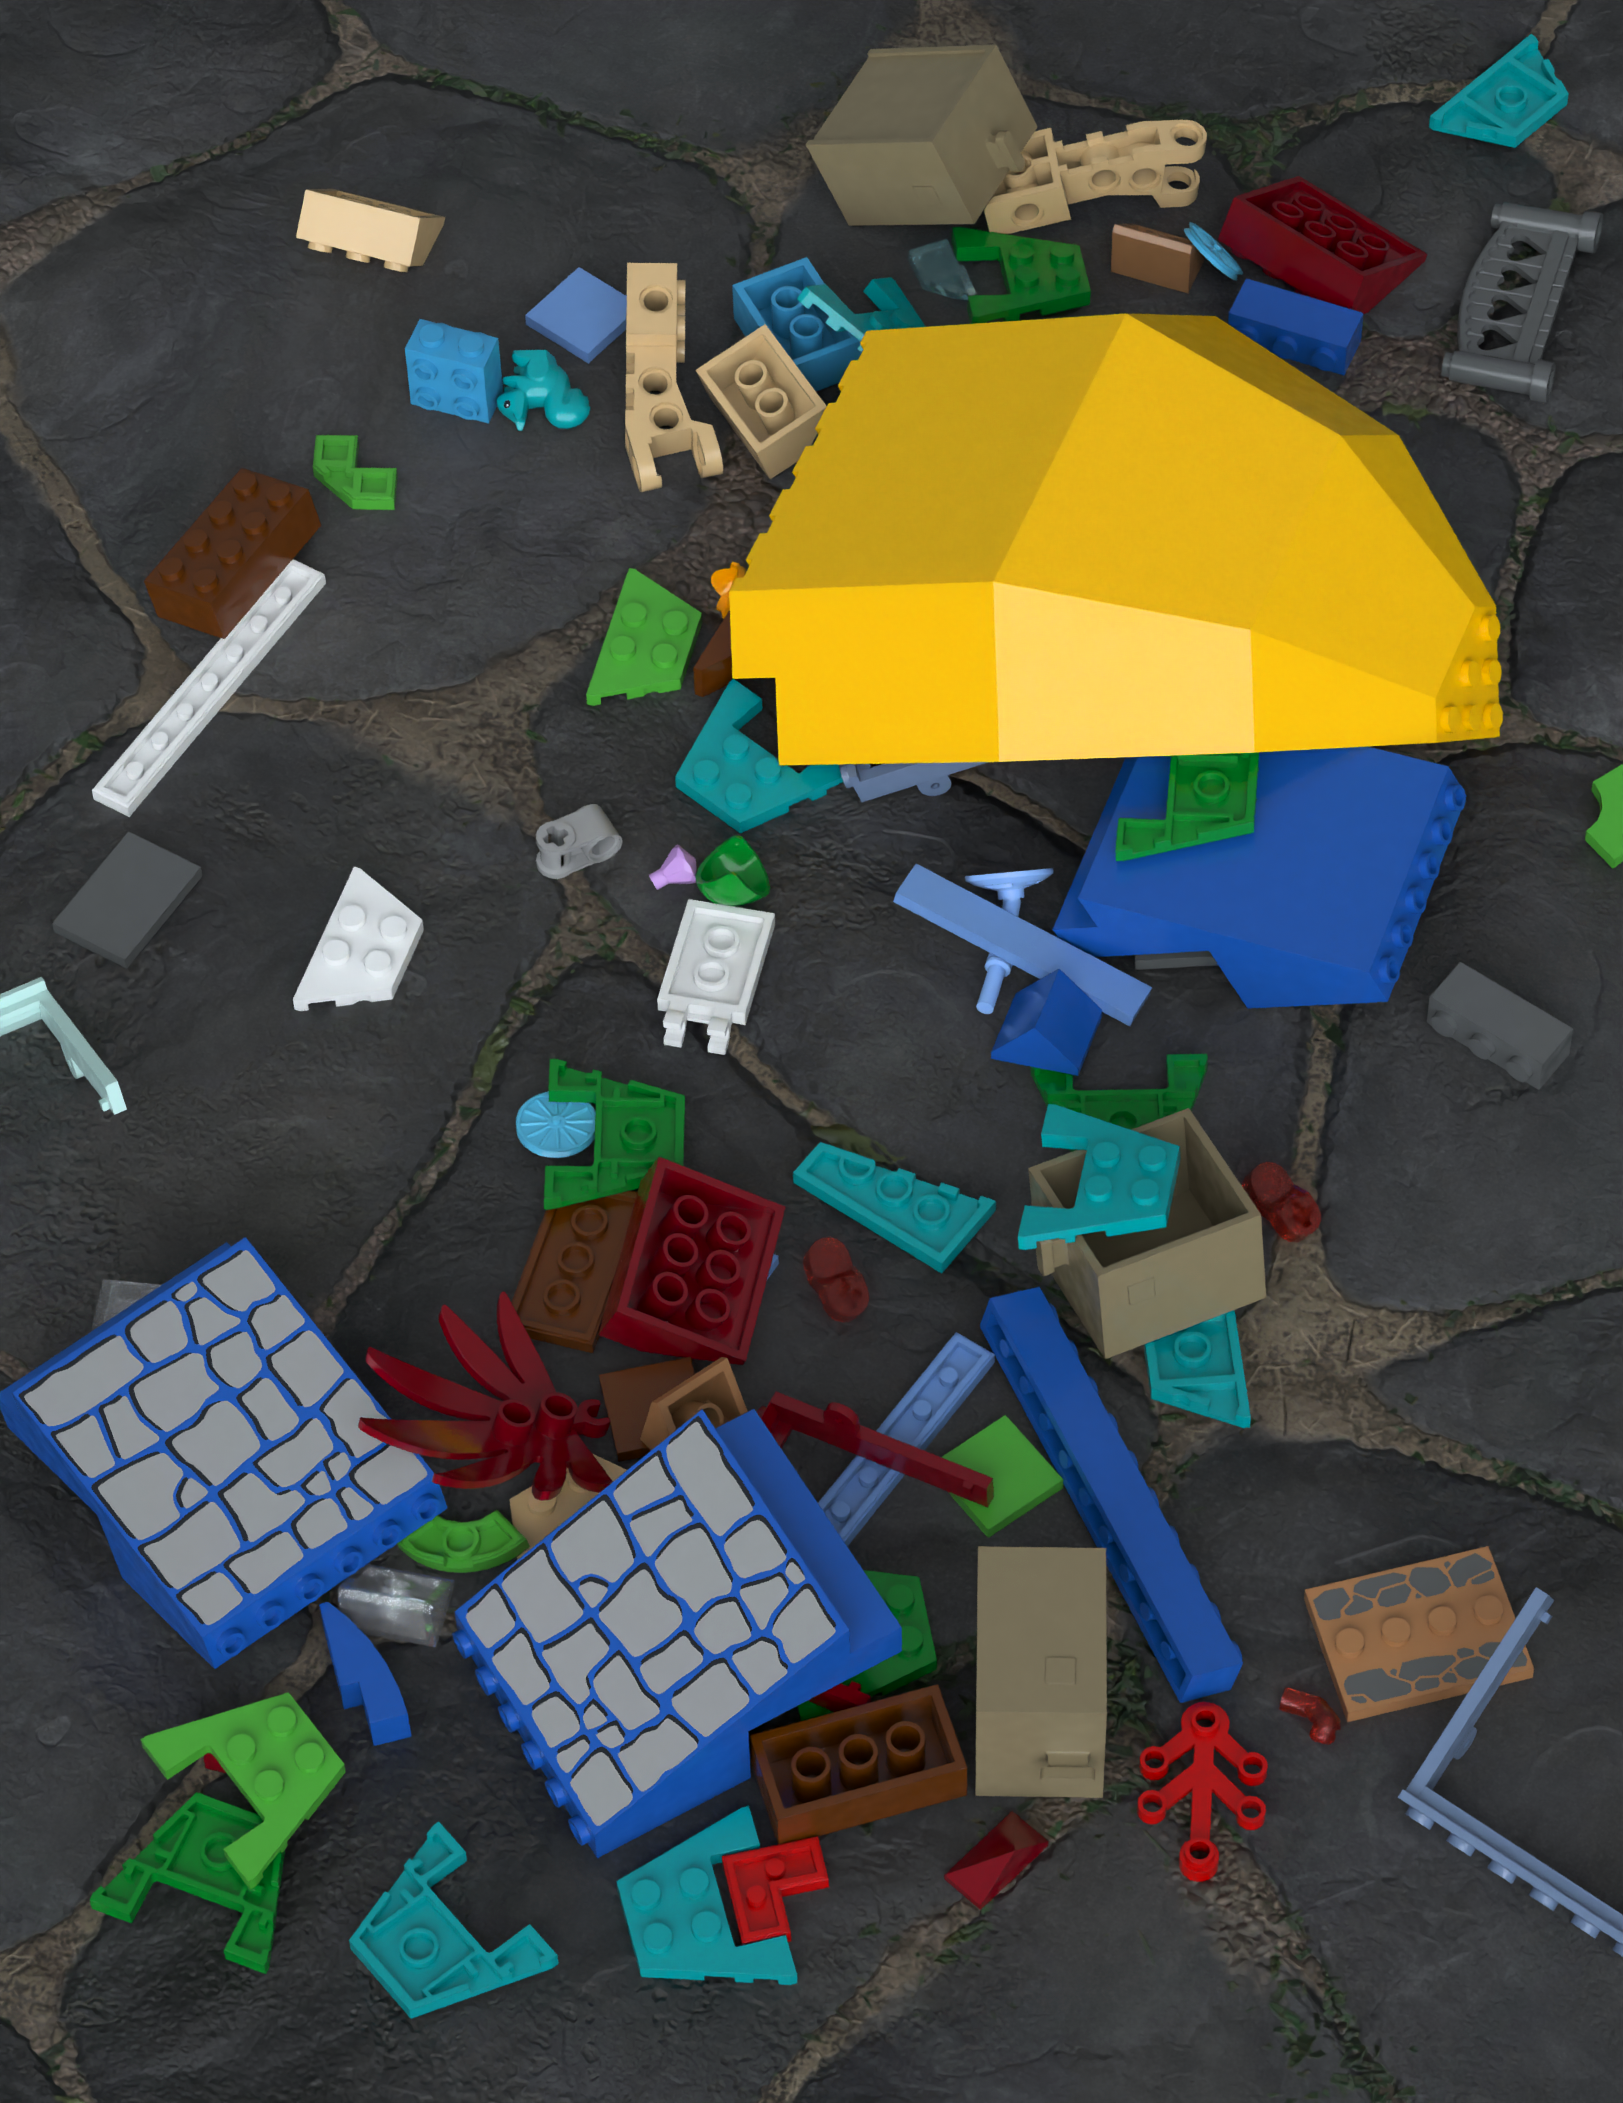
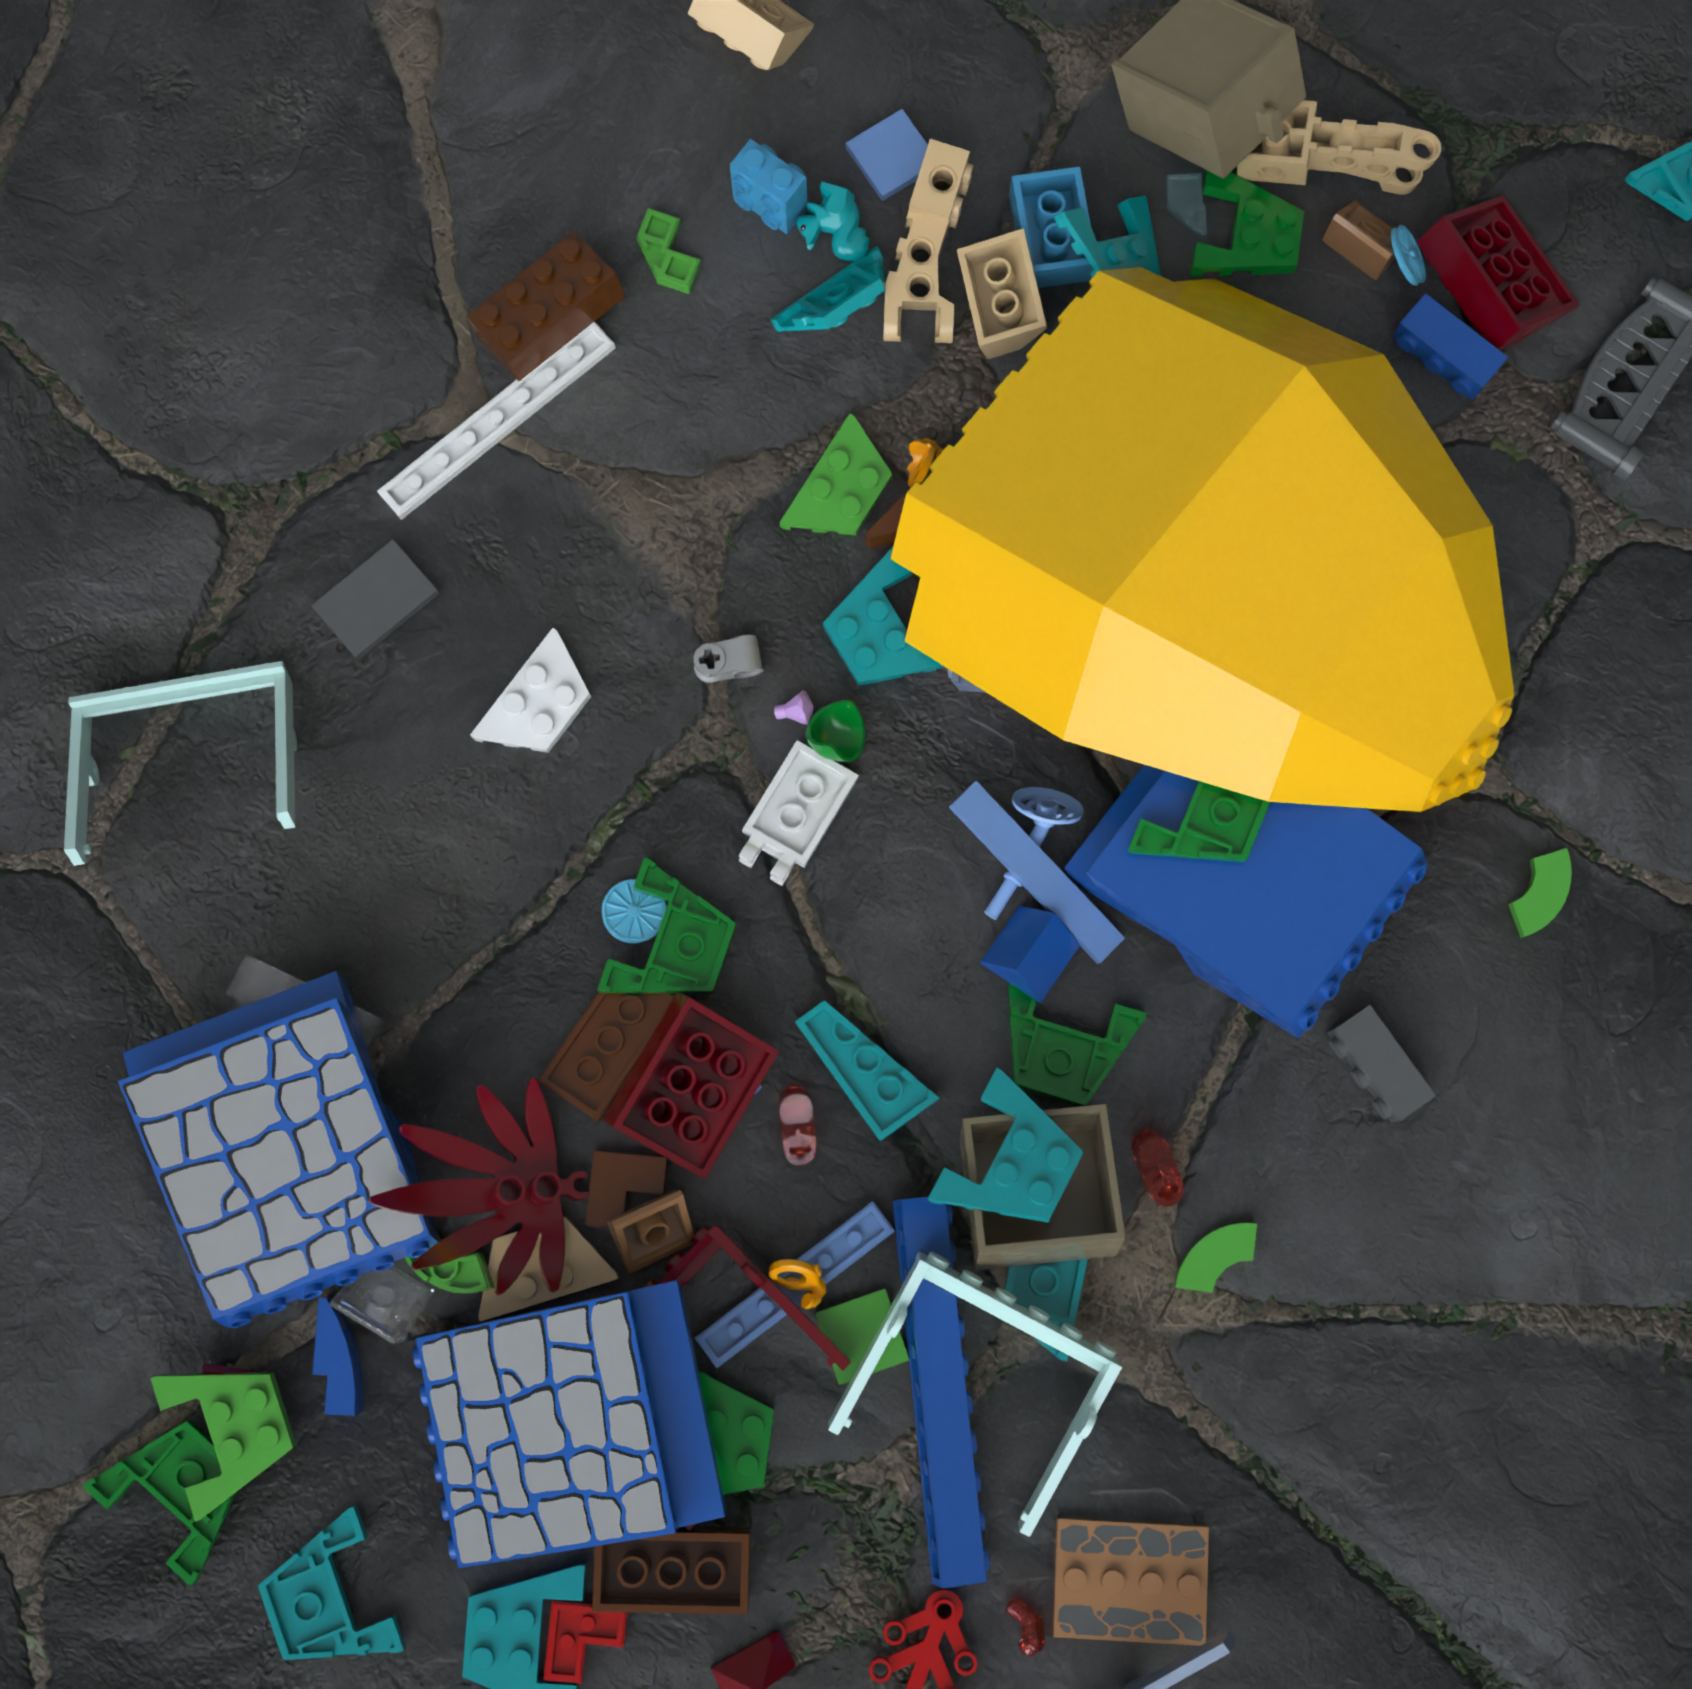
camera: 15 degrees right, 25 degrees up
(569, 460) = (836, 297): none -> teal wing
(913, 1427) = (809, 1280): none -> light orange piece
(1041, 1672) = (826, 1567): dark tan piece -> none
(1185, 1374) = (1030, 1320): none -> light aqua piece
(1383, 1274) = (1214, 1254): none -> bright green tile

